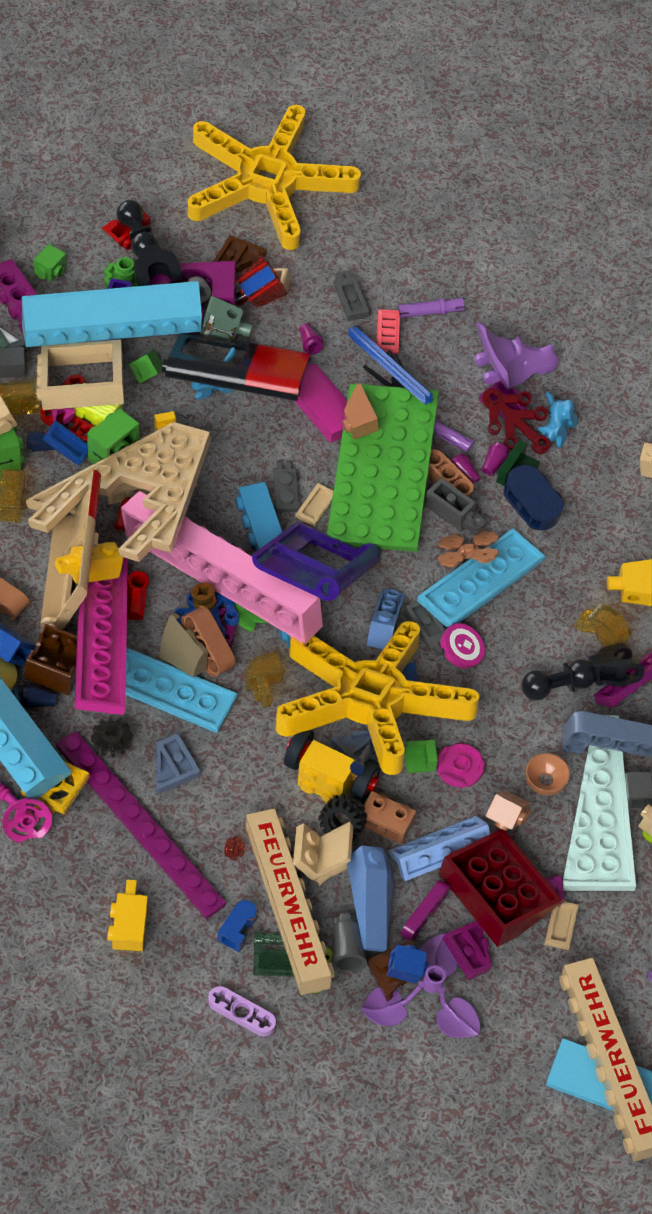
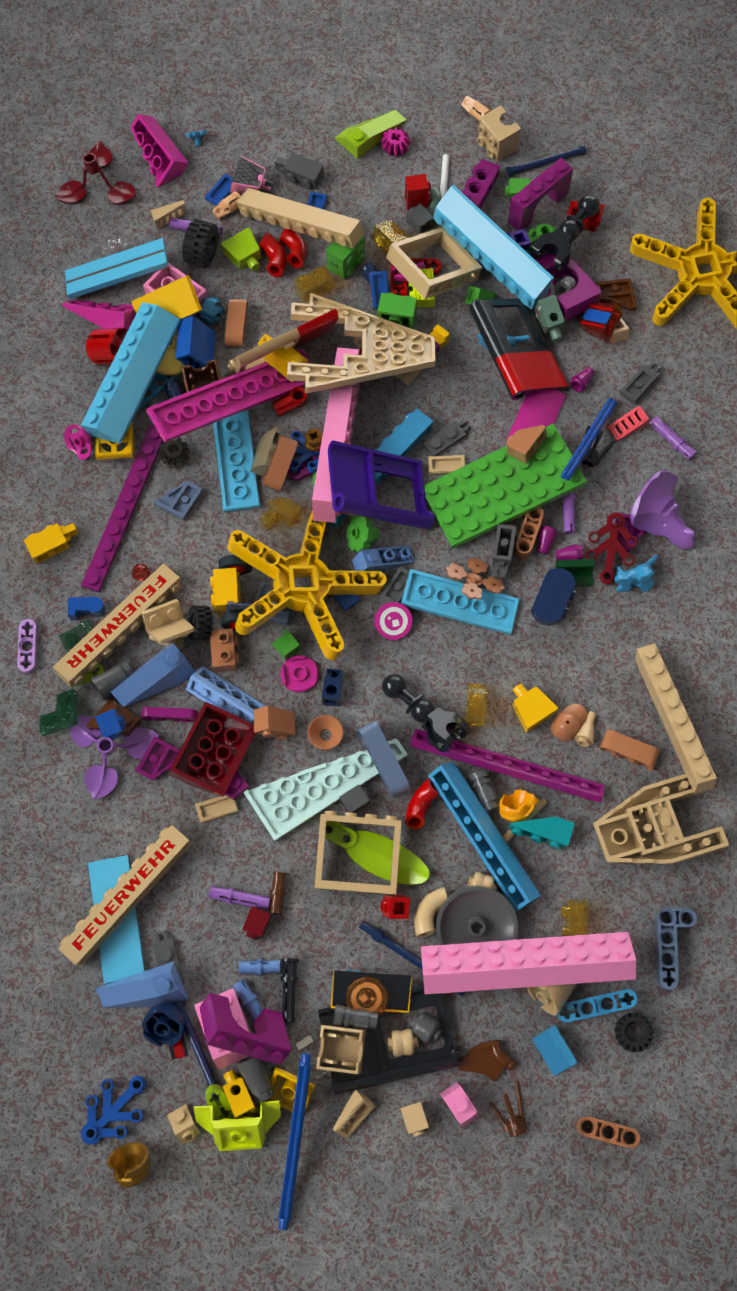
camera: 65 degrees right, 15 degrees up
(44, 188) = (543, 161): none -> dark blue bar
(78, 239) = (553, 182): none -> magenta arch
(345, 617) = (361, 533): none -> bright green plant
(359, 1016) = (64, 716): none -> clear green plate
(499, 741) = (332, 687): none -> dark blue leg

